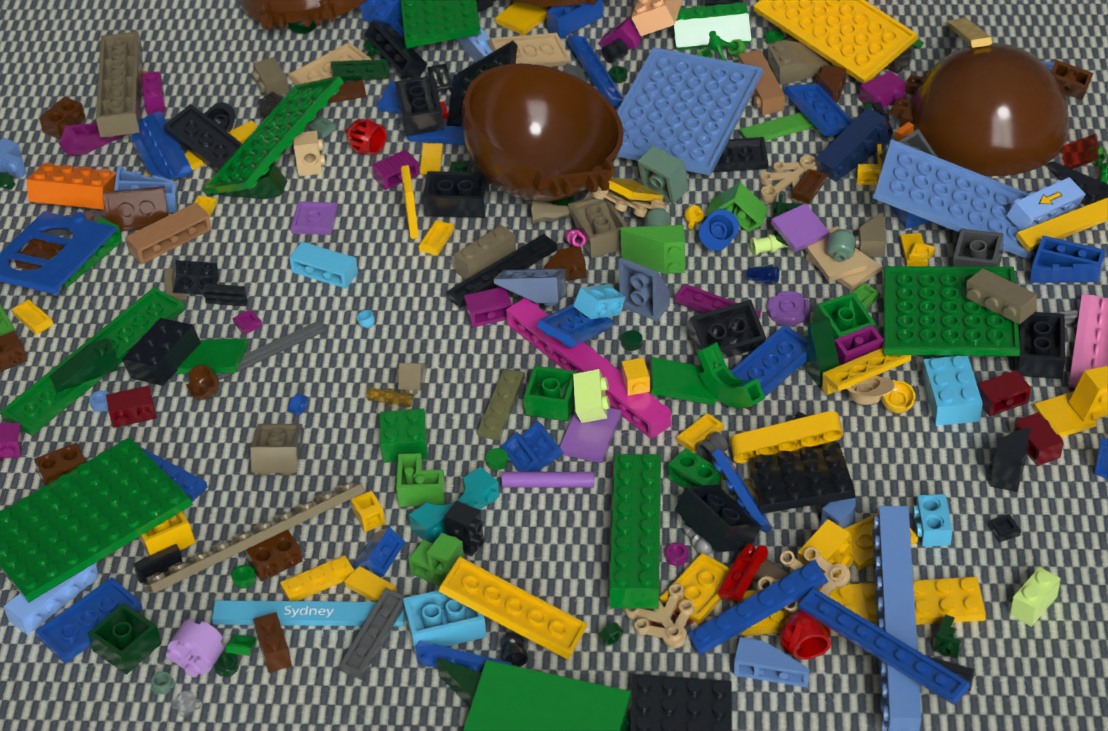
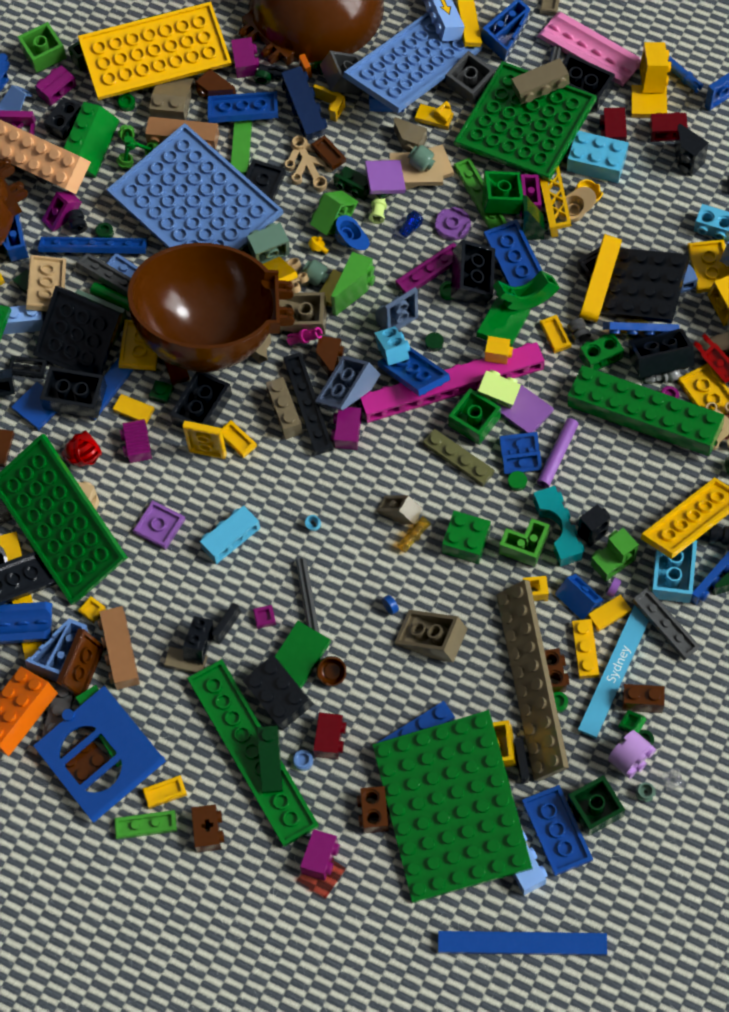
camera: 65 degrees left, 20 degrees up
(401, 576) = (613, 587): none -> medium lavender tile

